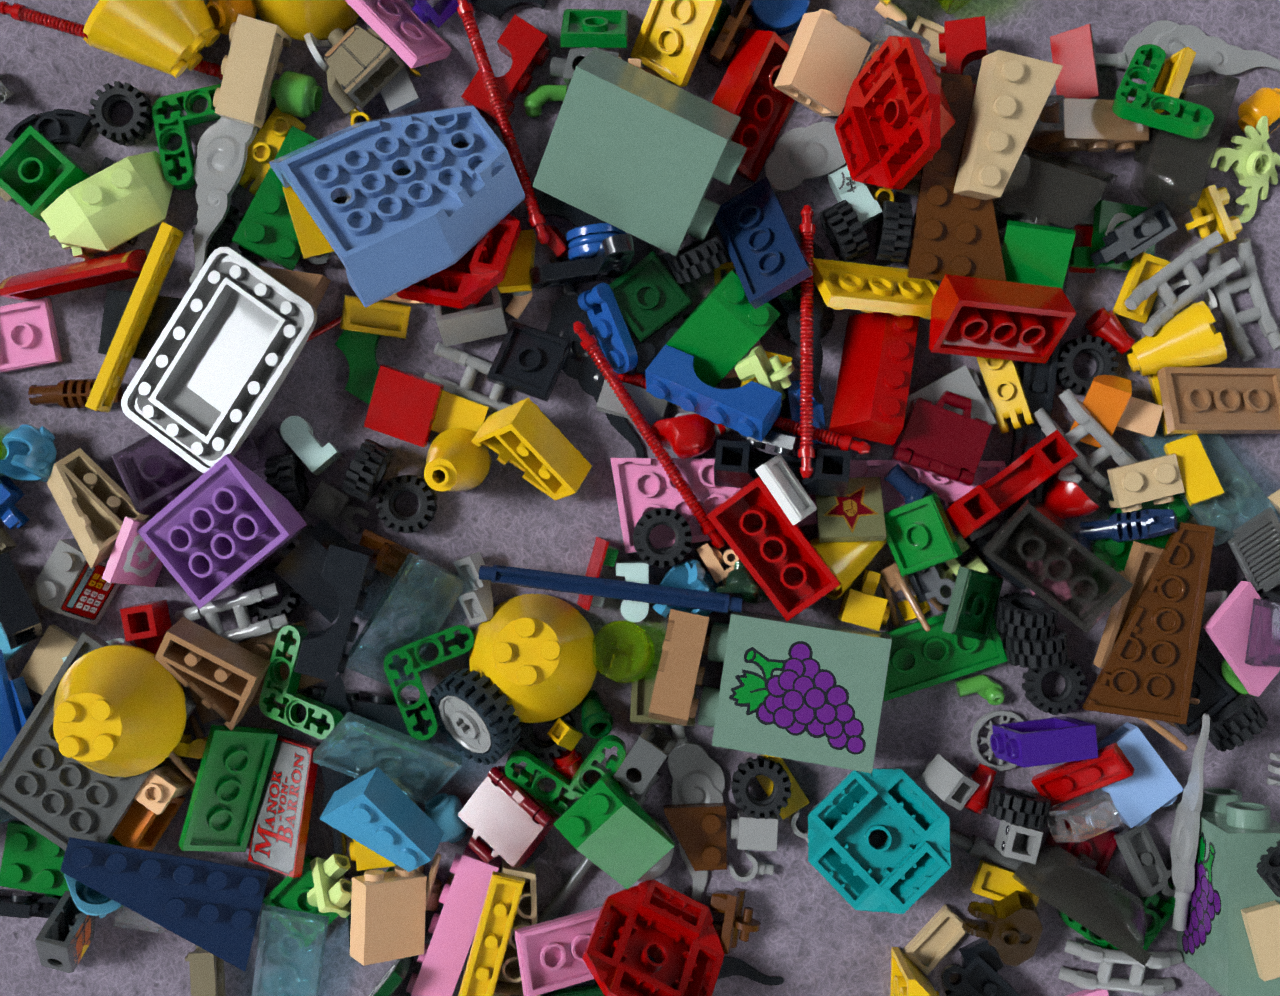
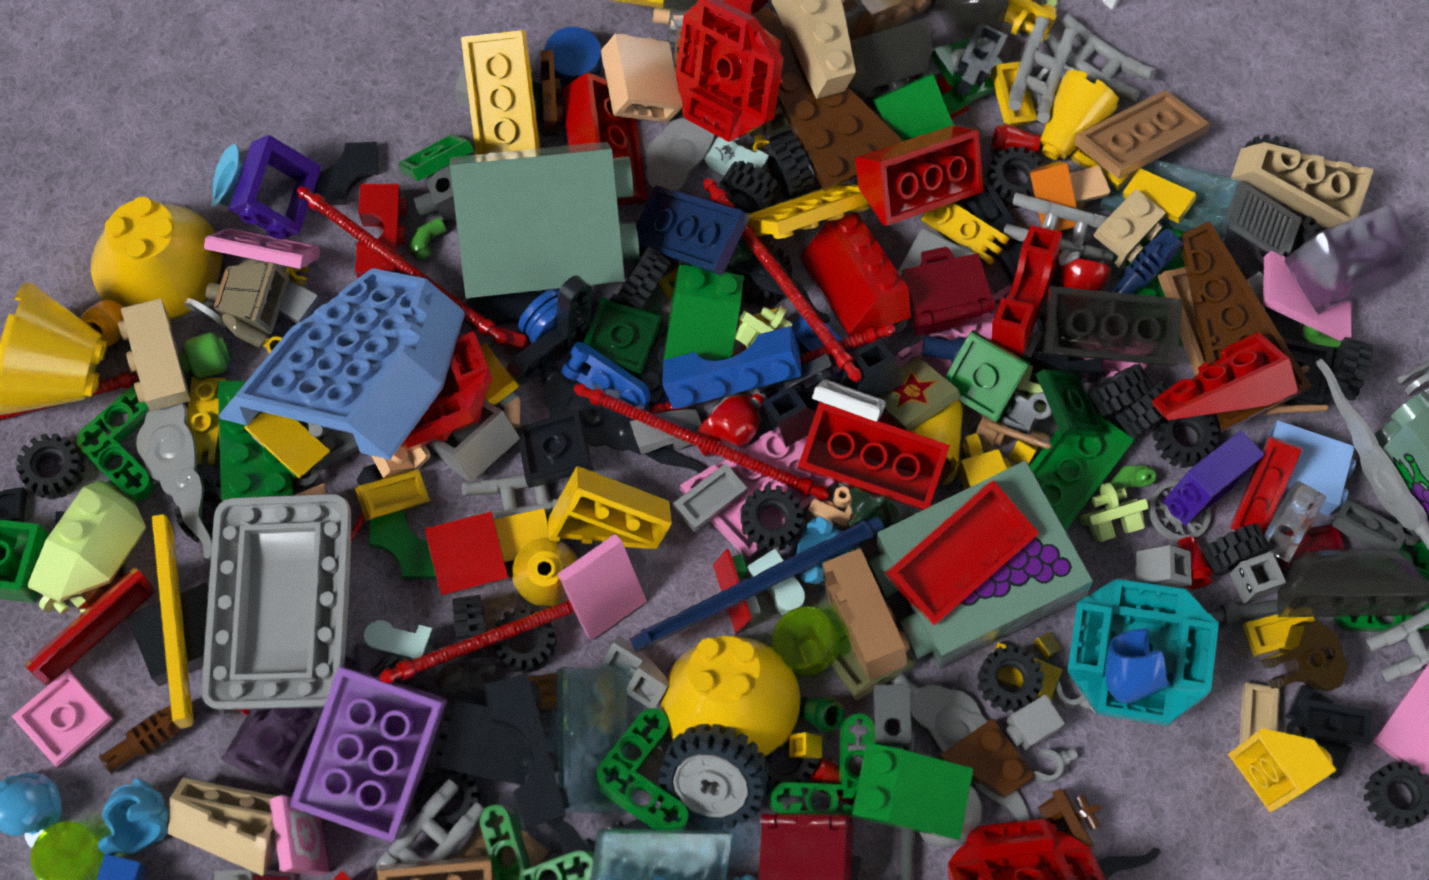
camera: 40 degrees left, 20 degrees down
(281, 488) = (407, 668): none -> red hose
(485, 509) = (602, 587): none -> bright pink tile
(626, 485) = (710, 497): none -> light grey tile
(783, 680) = (961, 552): none -> red slope
(814, 775) = (1048, 645): none -> yellow piece
(855, 857) = (1132, 669): none -> blue piece
(945, 705) = (1100, 520): none -> yellowish green hips
(1127, 683) = (1245, 377): none -> red wedge

